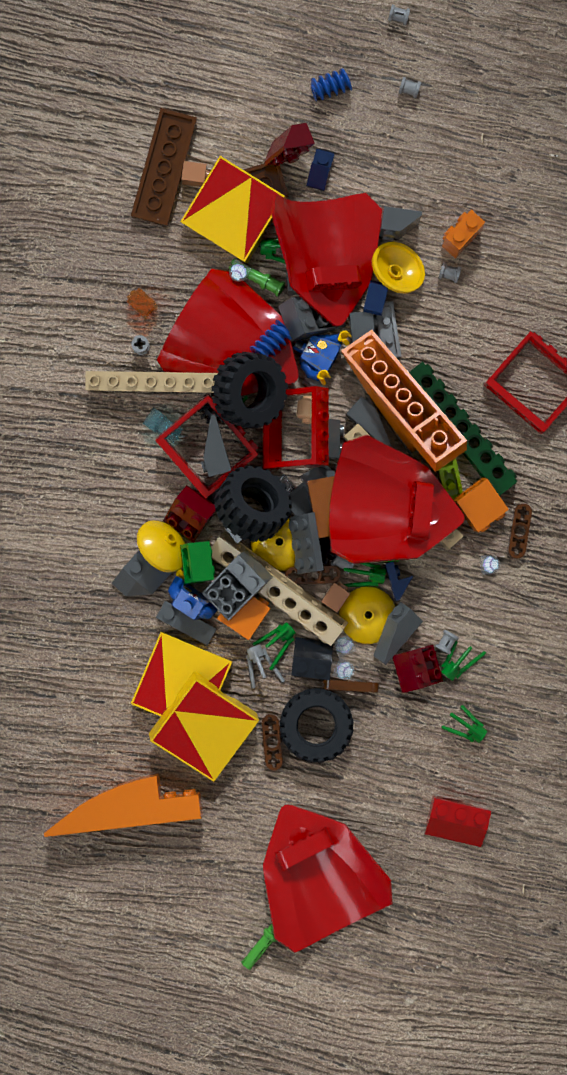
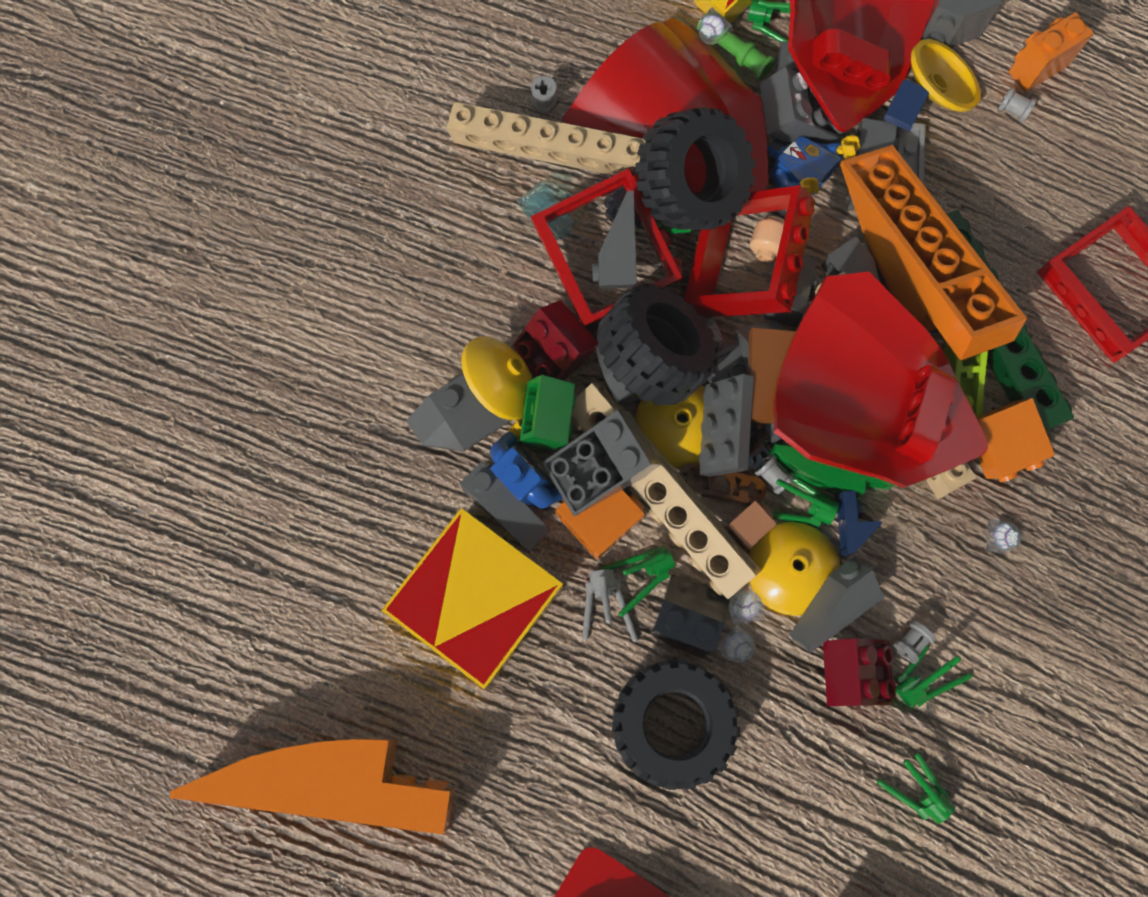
camera: 10 degrees right, 10 degrees down
(141, 303) = (560, 40): clear orange brick -> none
(203, 727) = (489, 679): tile -> none
(266, 747) = (598, 760): reddish brown beam -> none
(271, 340) = (751, 114): blue piece -> none
(350, 686) = (745, 674): reddish brown beam -> none
(511, 544) = (1070, 488): reddish brown beam -> none

